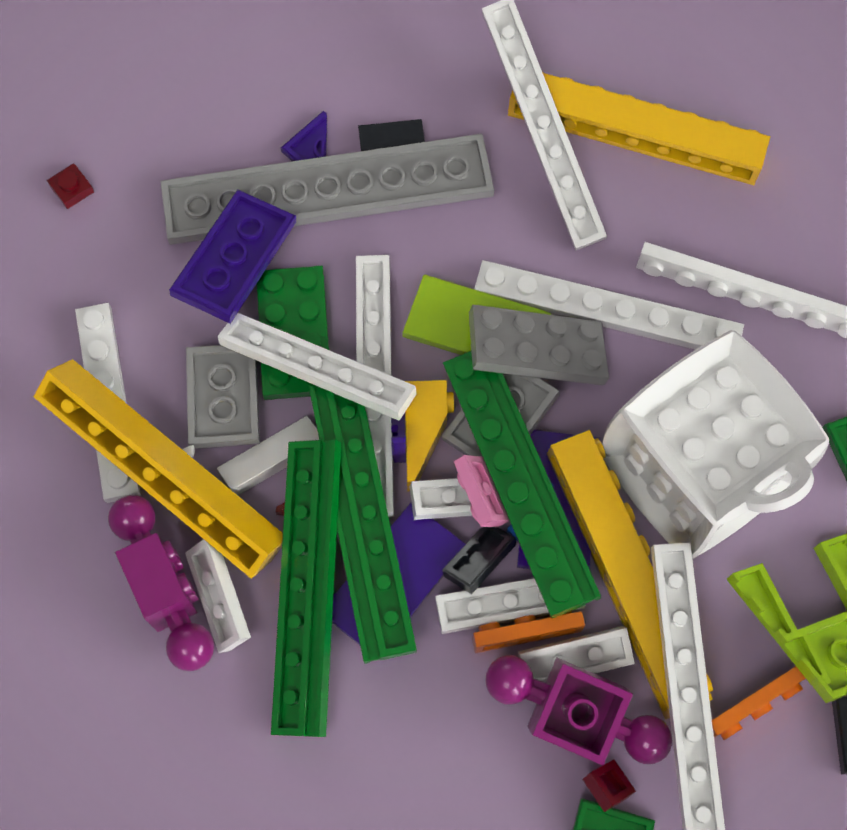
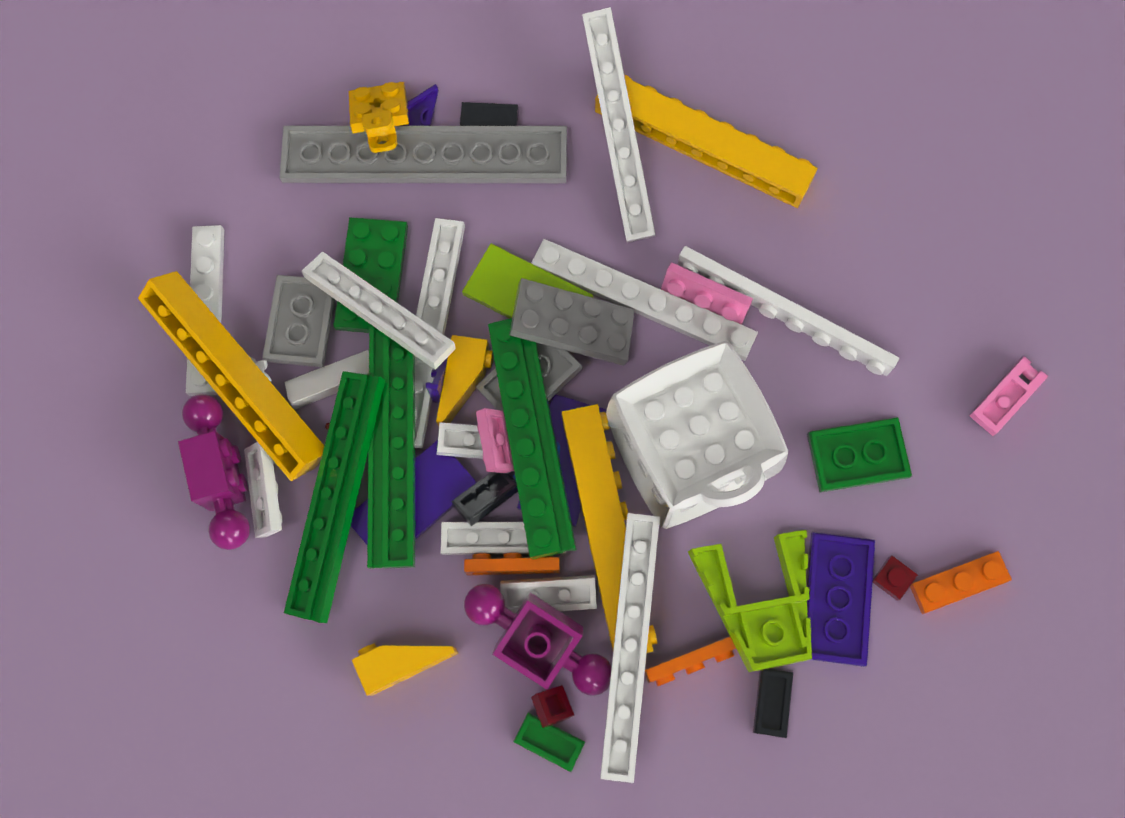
camera: 15 degrees right, 5 degrees up
(70, 186) = (209, 118): dark red plate -> none
(233, 256) = (329, 202): dark purple tile -> none
(268, 149) = (378, 112): none -> yellow plate
(414, 769) = (390, 665): none -> yellow slope
(678, 290) = (706, 293): none -> bright pink plate

